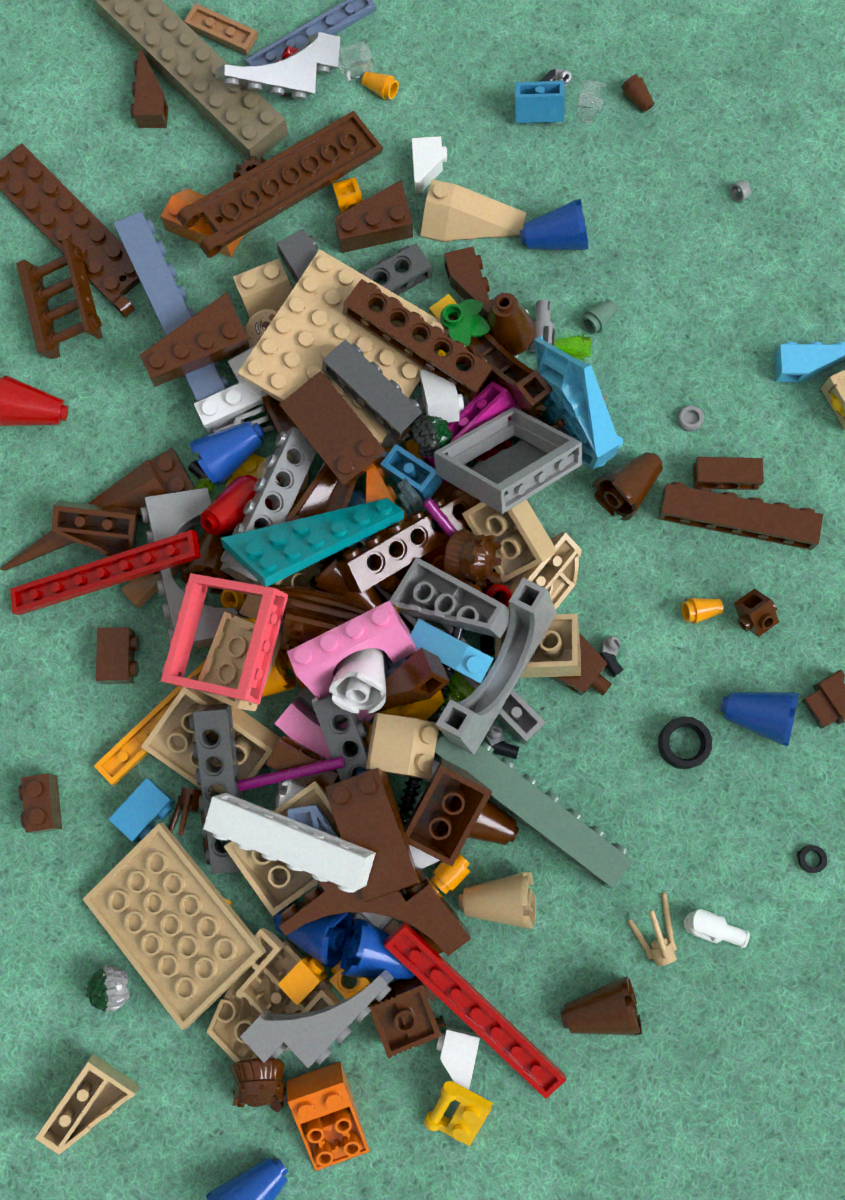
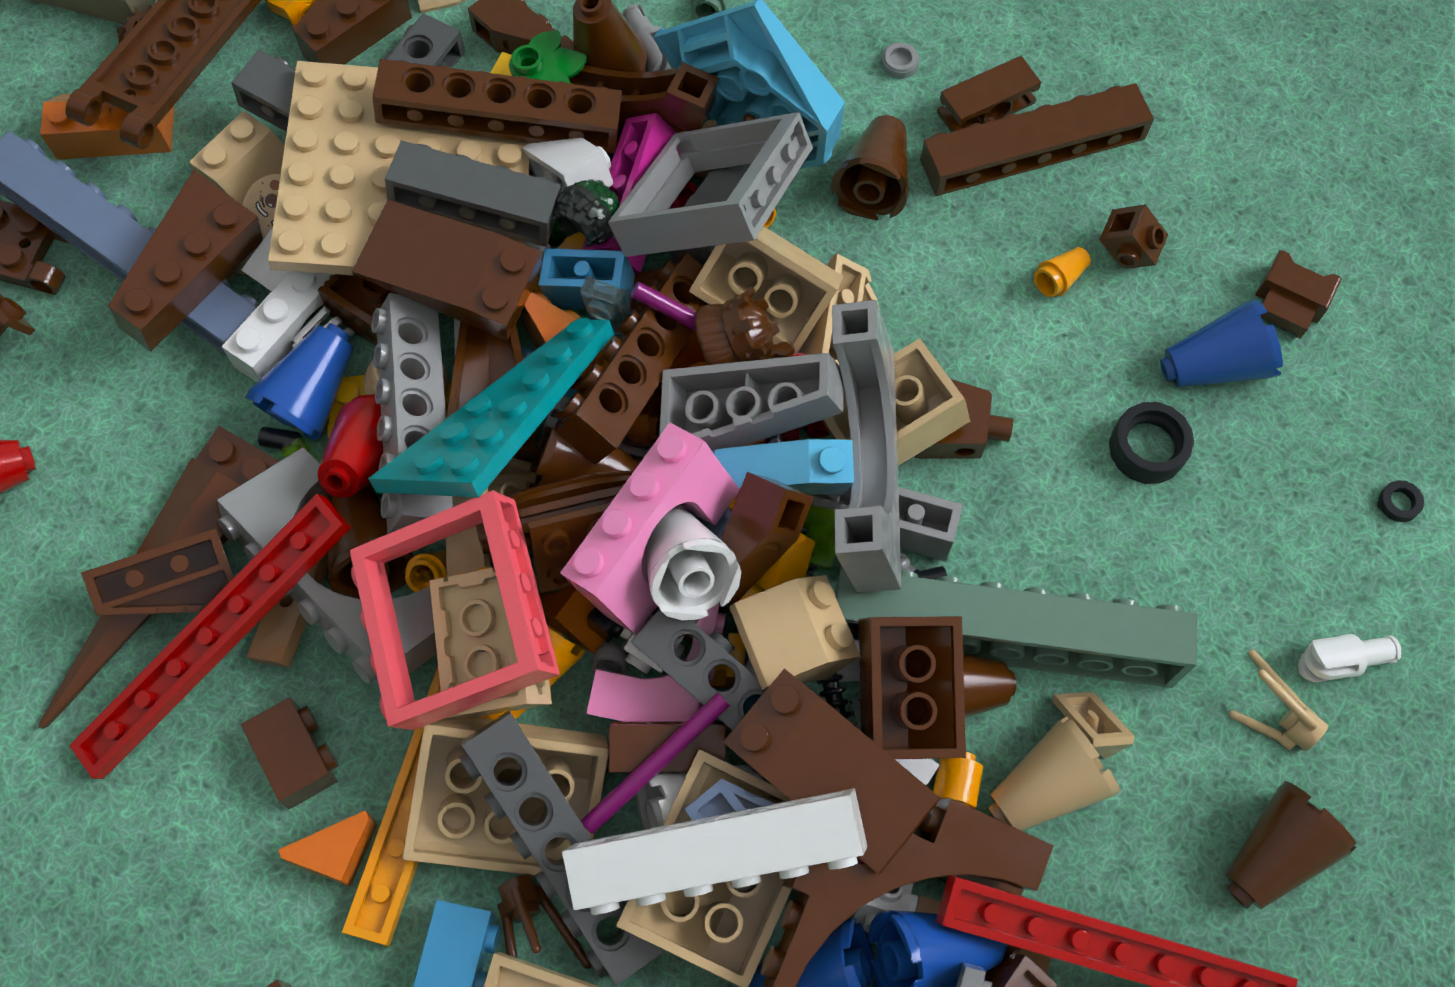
camera: 35 degrees left, 10 degrees down
(110, 721) = (333, 850): none -> orange slope
(544, 881) = (1095, 721): none -> tan slope
(608, 653) = (978, 376): arm -> none

